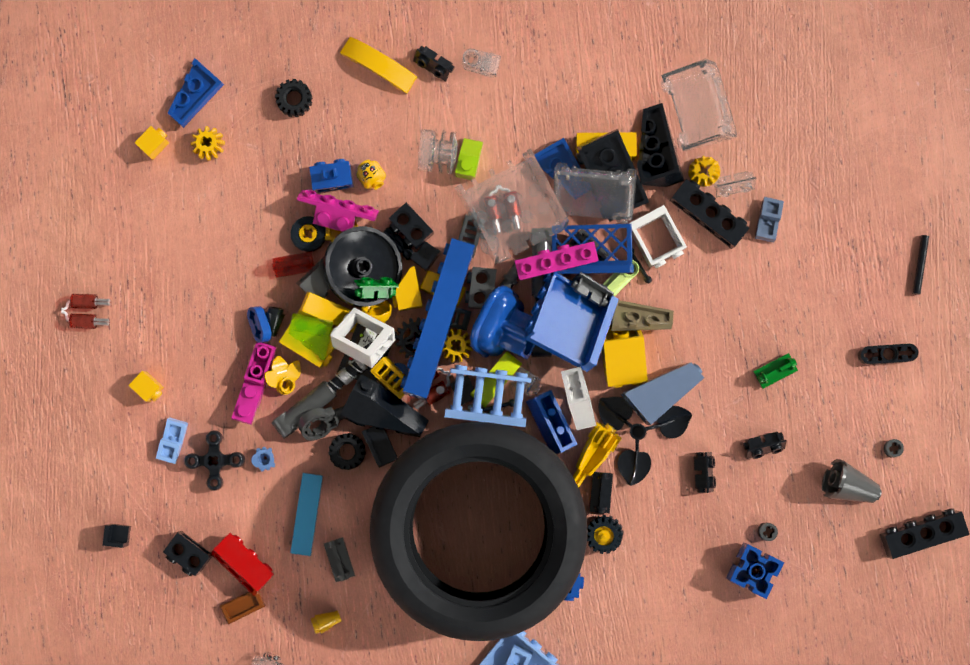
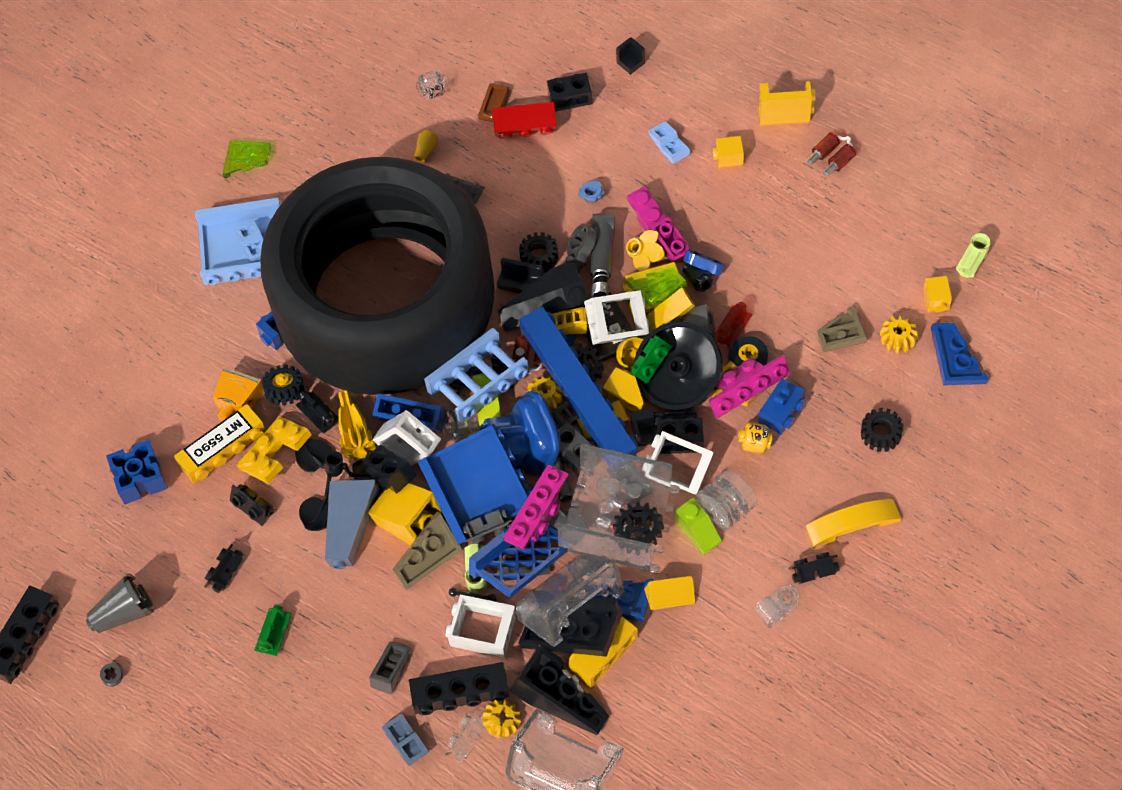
camera: 140 degrees right, 25 degrees down
(86, 386) = (785, 106): none -> yellow panel
(100, 141) = (974, 256): none -> yellowish green piece
(215, 469) = (623, 157): black gear -> none
(236, 184) = (842, 332): none -> dark tan wing
(306, 514) = (519, 192): dark azure tile -> none
(433, 186) = (702, 465): none -> white window
(500, 184) = (639, 517): none -> black gear
(531, 136) = (670, 592): none -> yellow slope
(605, 392) = (388, 468): none -> black brick
(639, 562) = (235, 391): none -> light orange torso
(642, 502) = (259, 460): none -> yellow plate
(683, 535) = (220, 444): none -> brick
(746, 264) = (385, 681): none -> dark grey slope
(773, 535) = (153, 507): dark grey bush -> none
(902, 358) = (173, 750): black beam -> none

